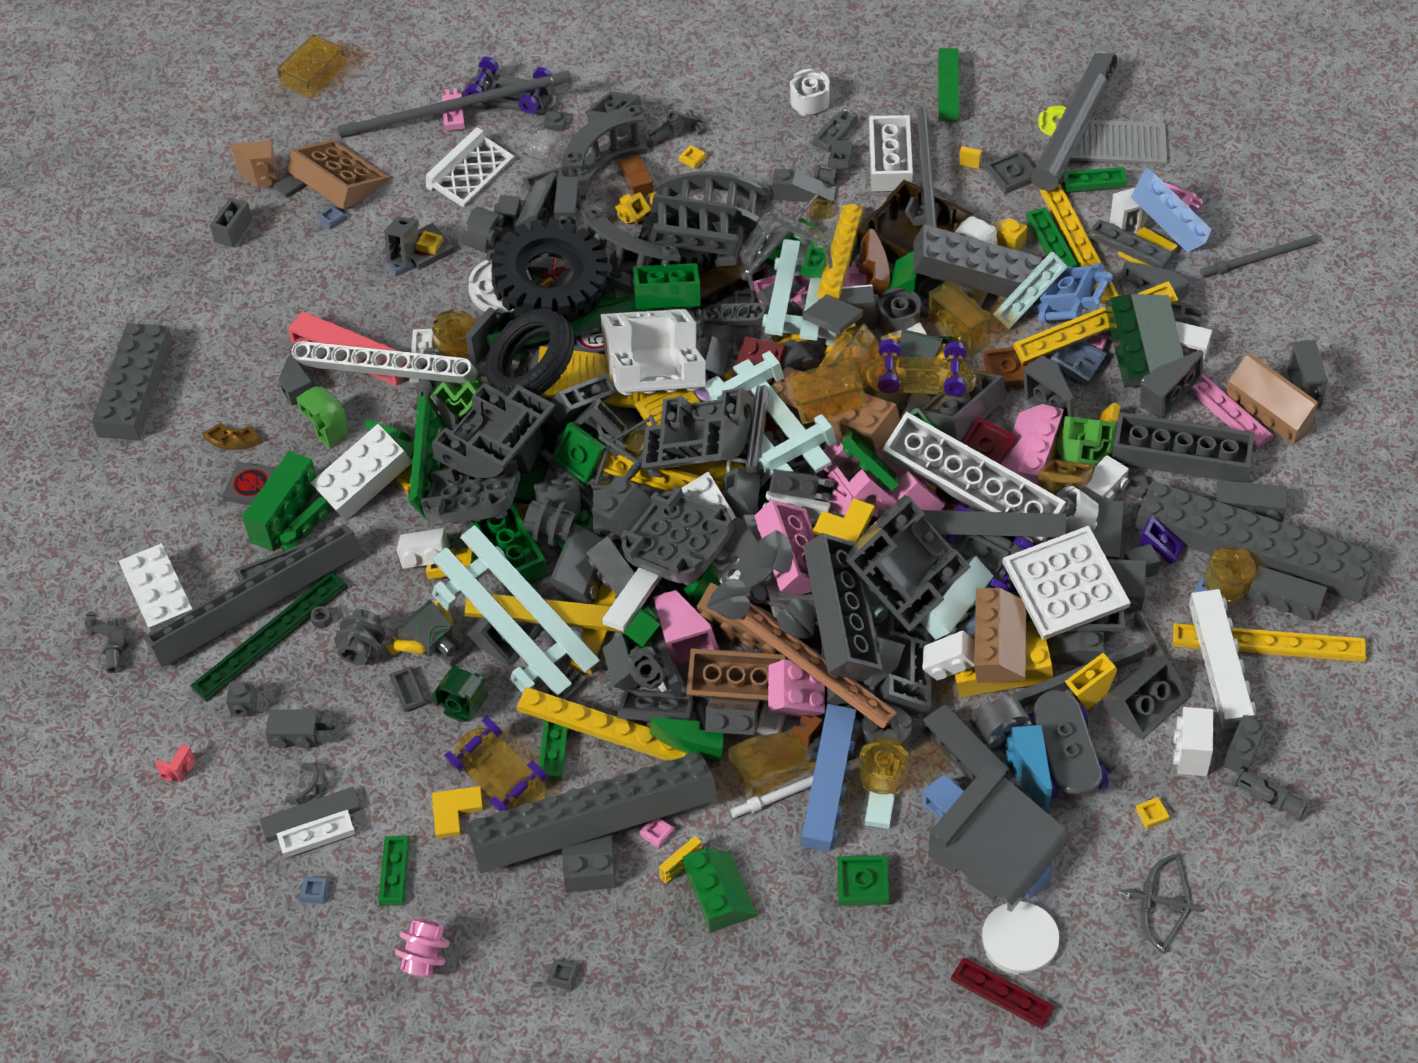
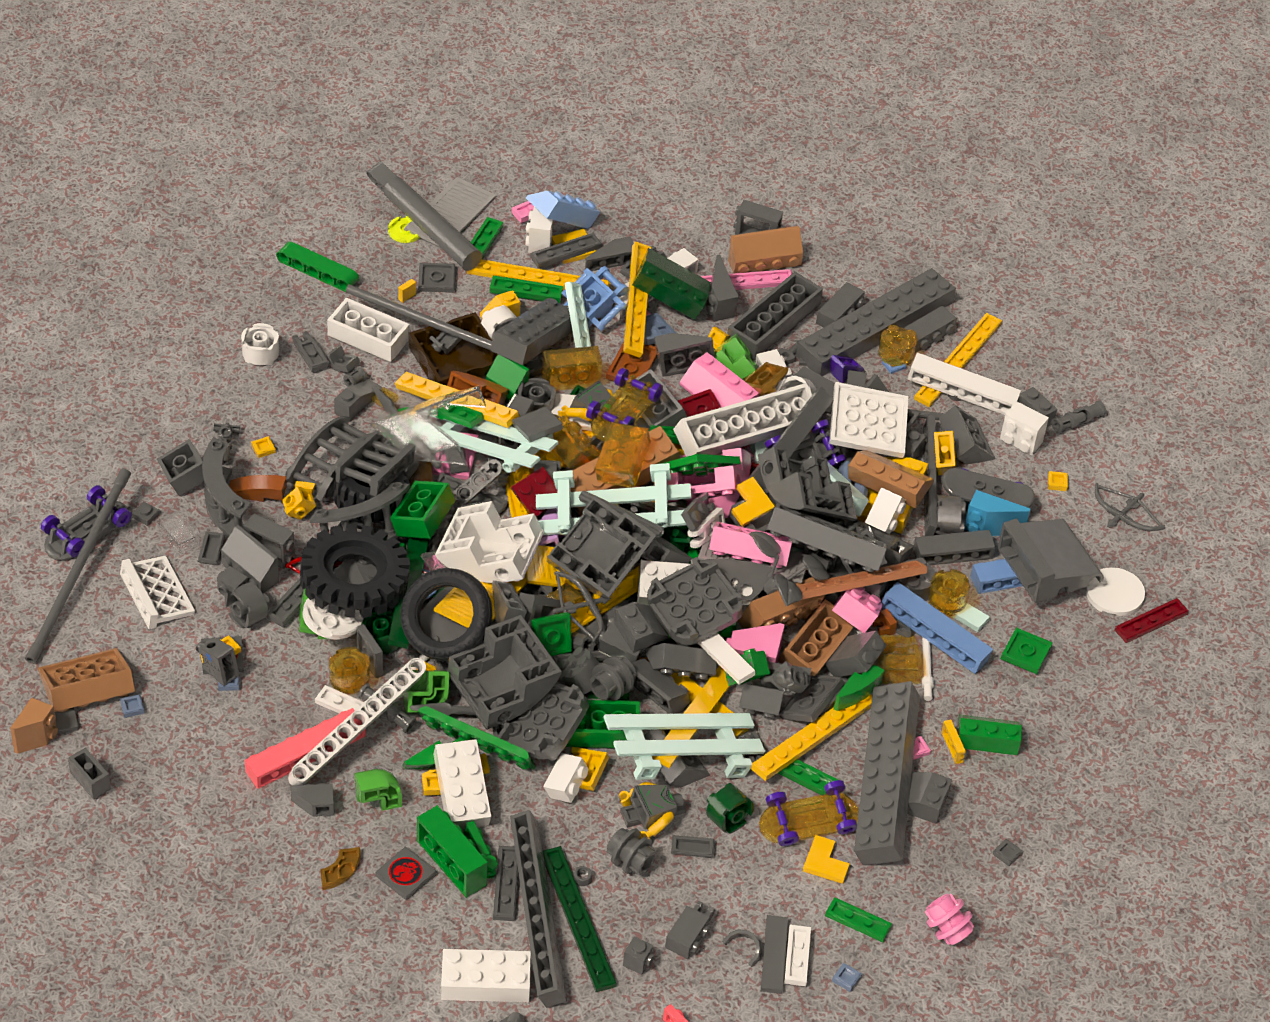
camera: 70 degrees left, 5 degrees down
(132, 381) = (226, 913): dark grey brick -> none
(453, 118) = (60, 569): bright pink hinge -> none
(1223, 266) = (620, 216): dark grey bar -> none

